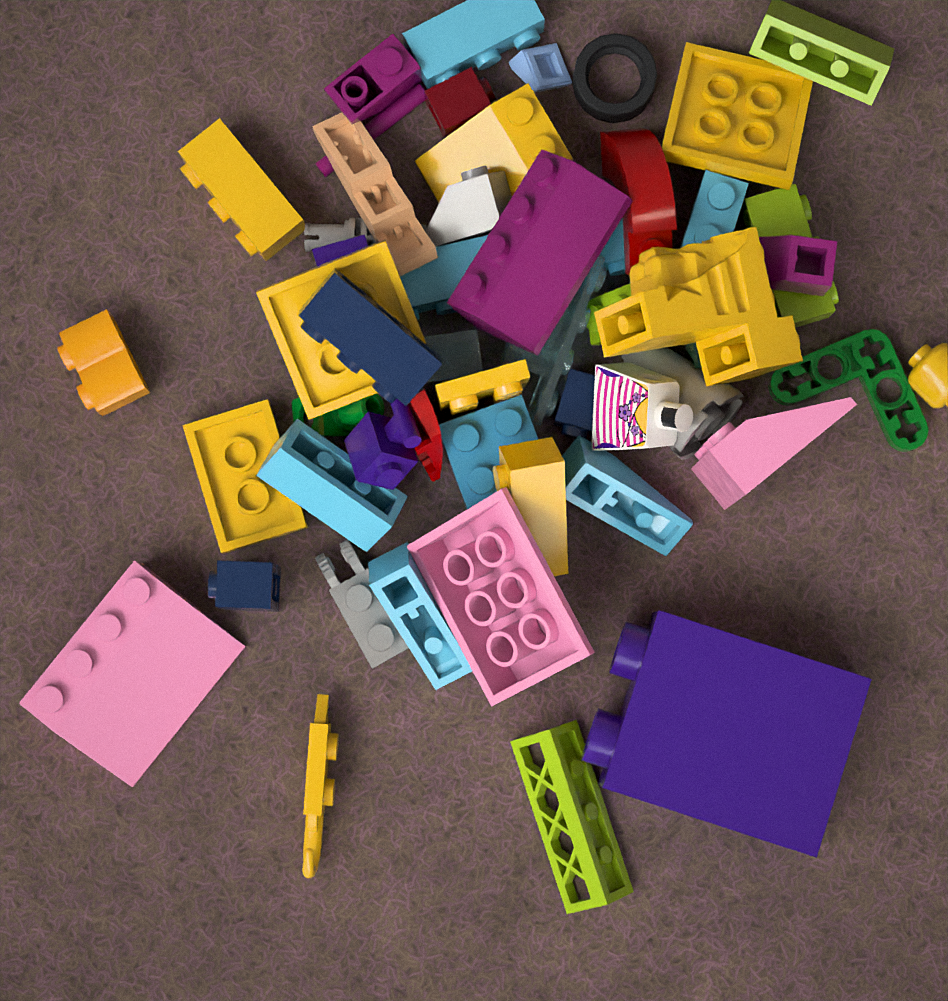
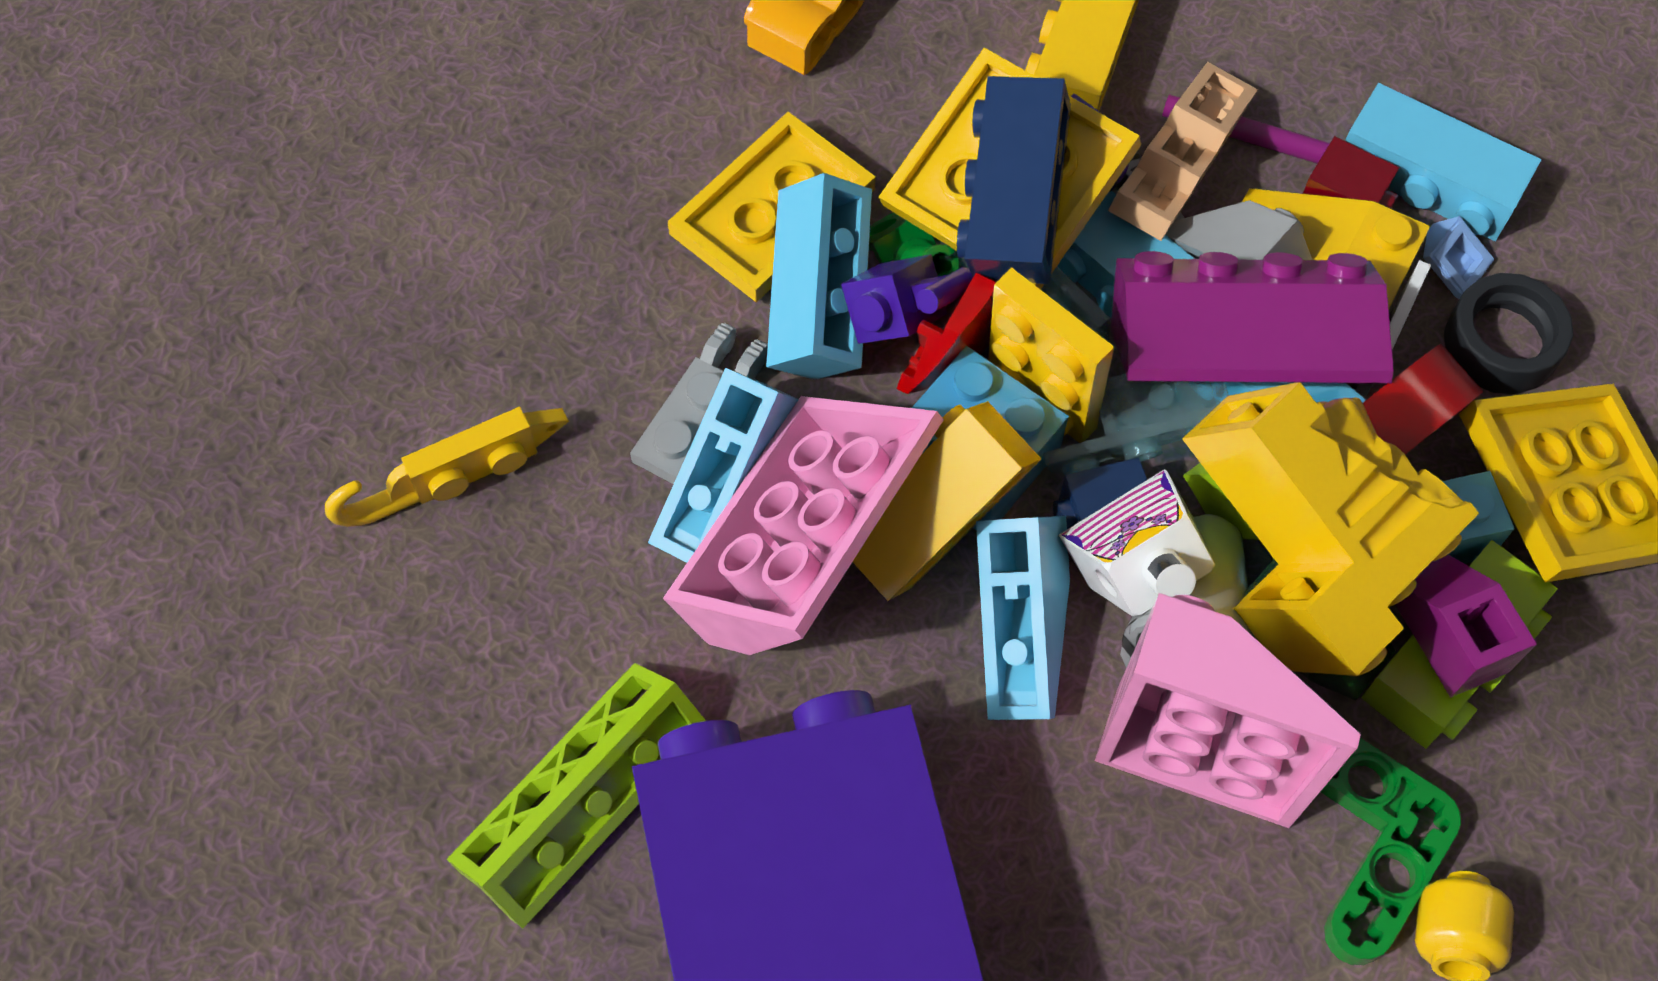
camera: 55 degrees right, 20 degrees down
(132, 674) = (472, 207): bright pink slope -> none
(245, 586) = (644, 255): dark blue brick -> none
(375, 81) = (1304, 89): magenta slope -> none
(573, 143) = (1401, 310): none -> white piece

